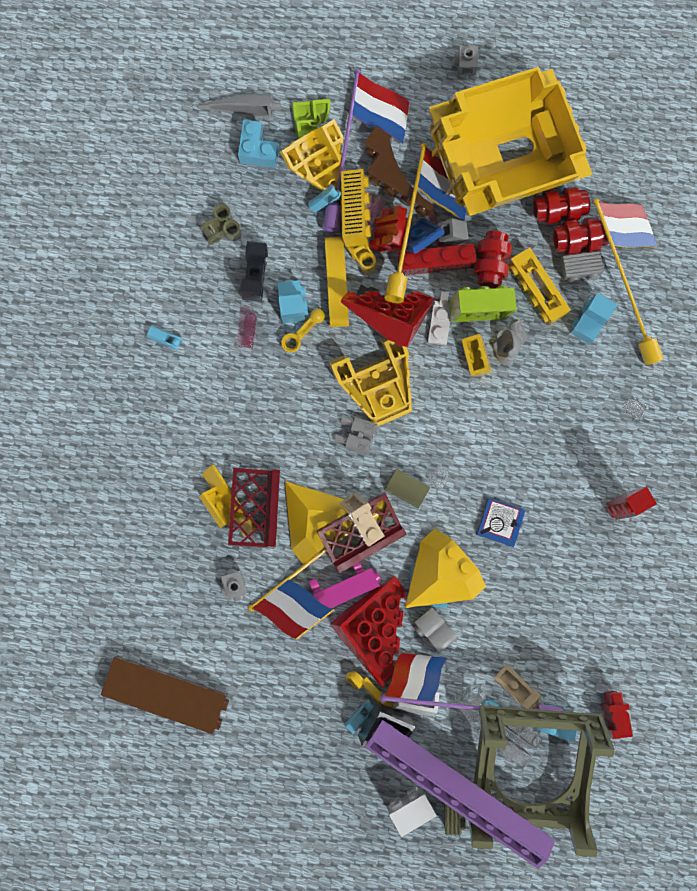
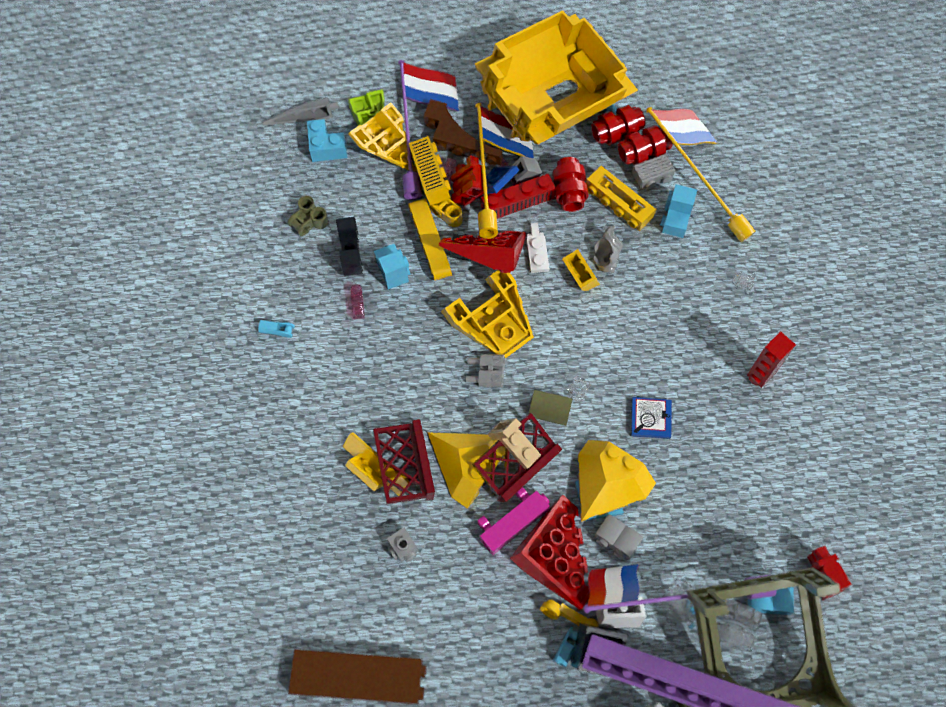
camera: 10 degrees left, 15 degrees down
(293, 606) = (467, 548): flag -> none
(316, 317) = (418, 274): yellow piece -> none
(323, 199) = (398, 171): medium azure bar -> none
(467, 60) = (496, 30): light grey brick -> none
(482, 304) = (572, 222): lime brick -> none
(518, 688) = (717, 571): tan bracket -> none

